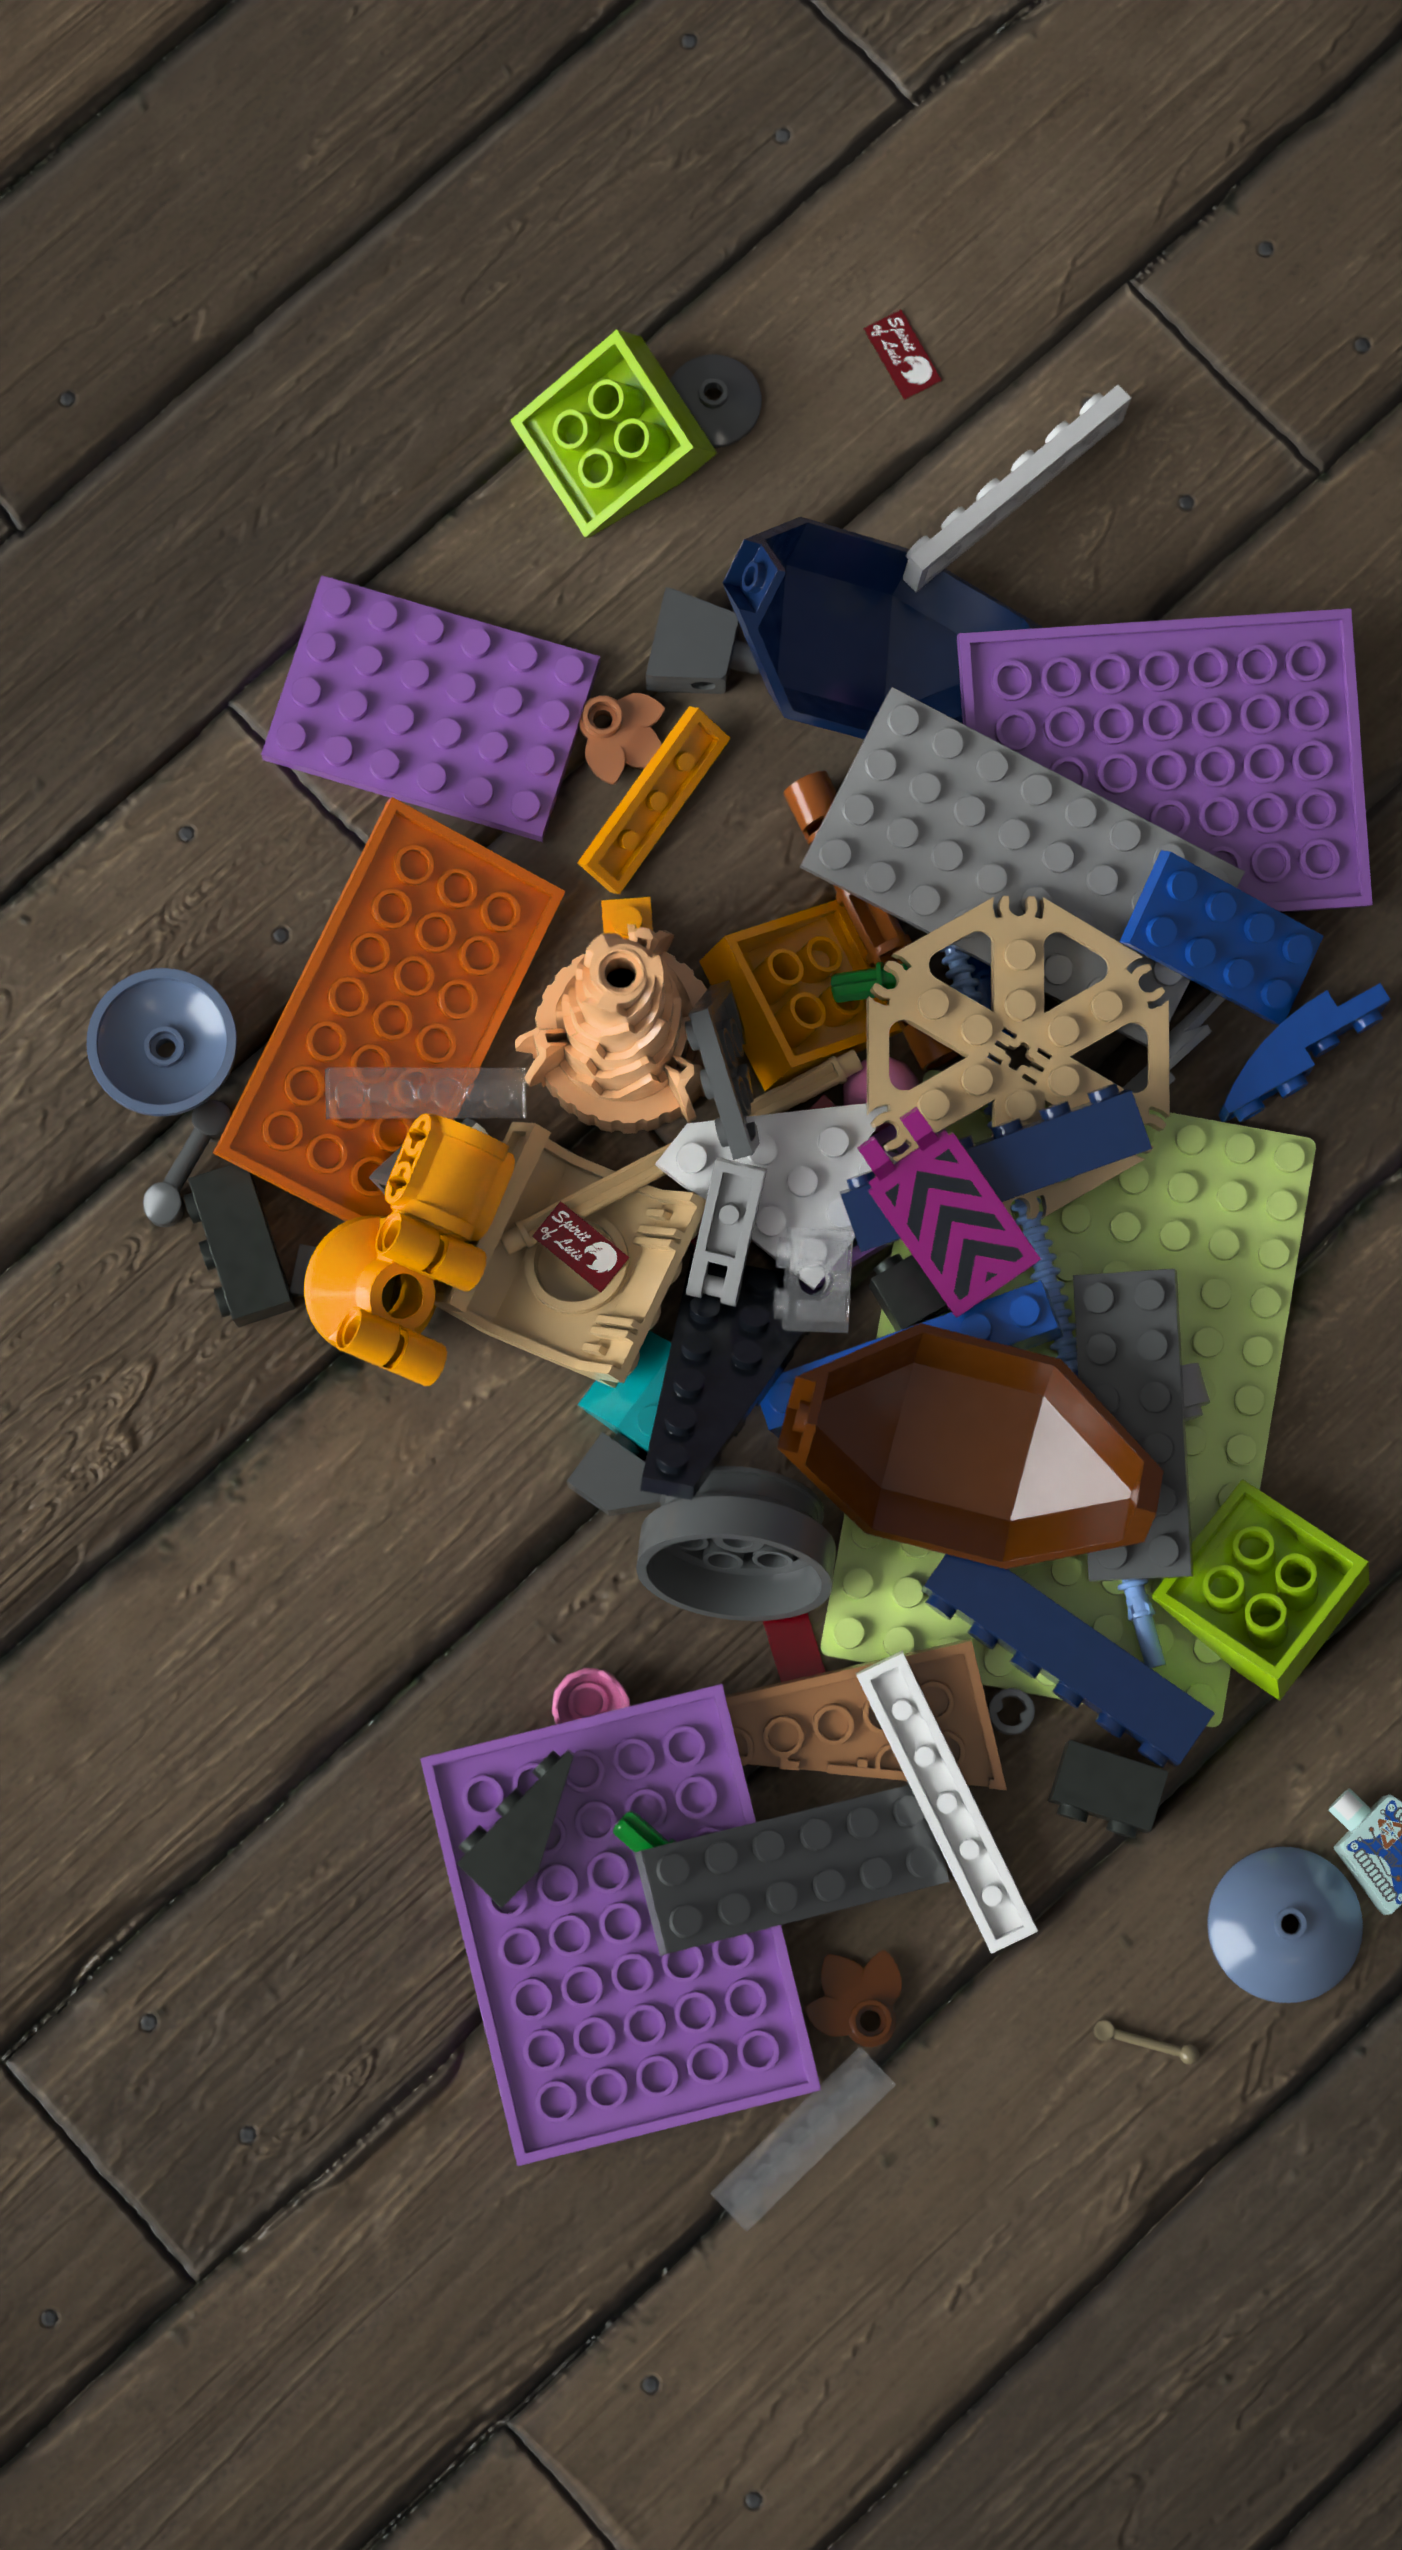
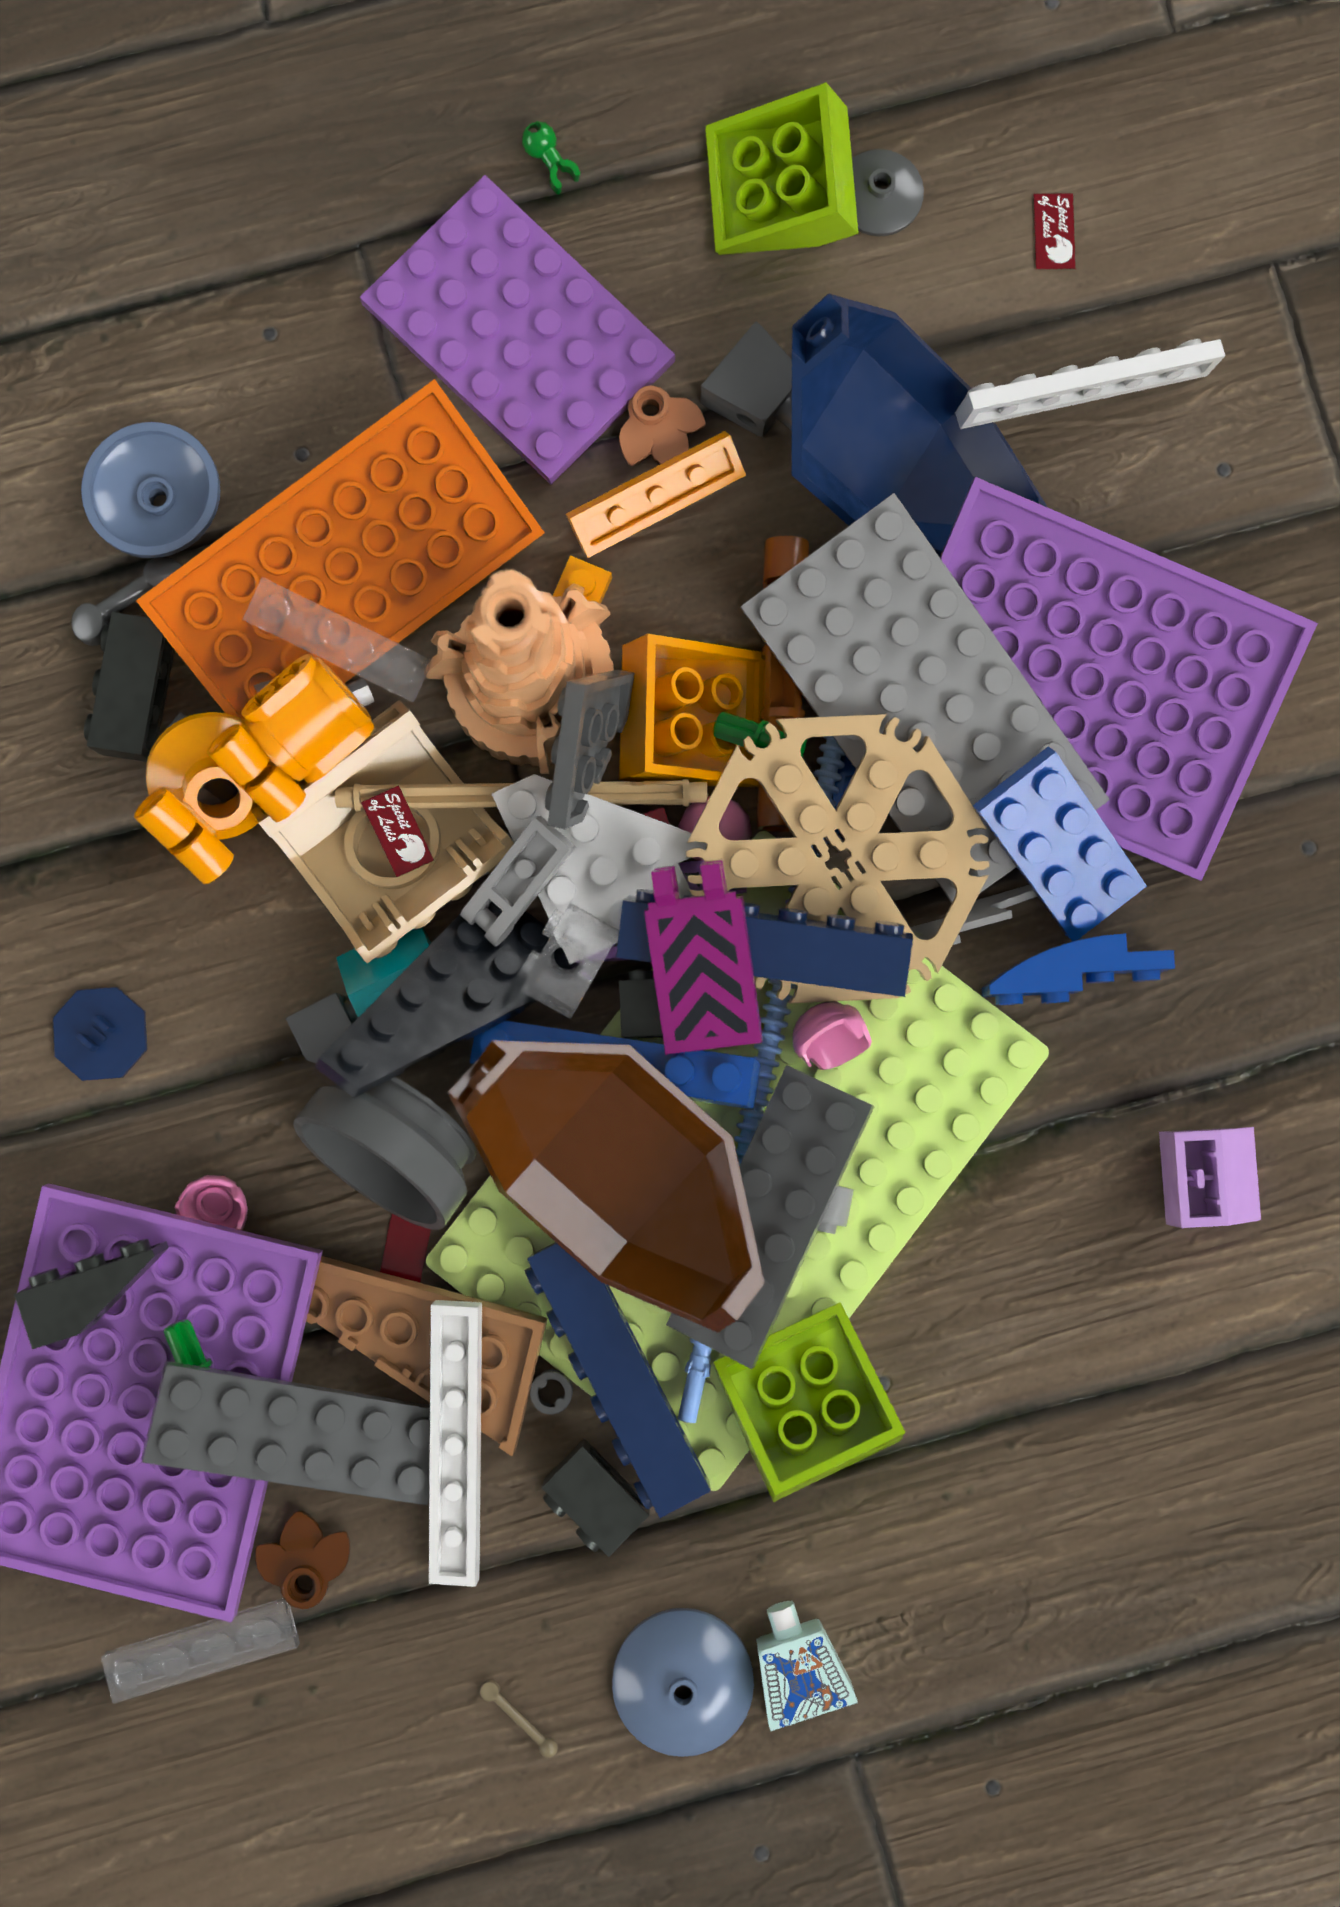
camera: 25 degrees right, 5 degrees up
(364, 520) = (542, 146): none -> green arm
(384, 1598) = (100, 1033): none -> dark blue piece
(1099, 1228) = (830, 1035): none -> bright pink hair

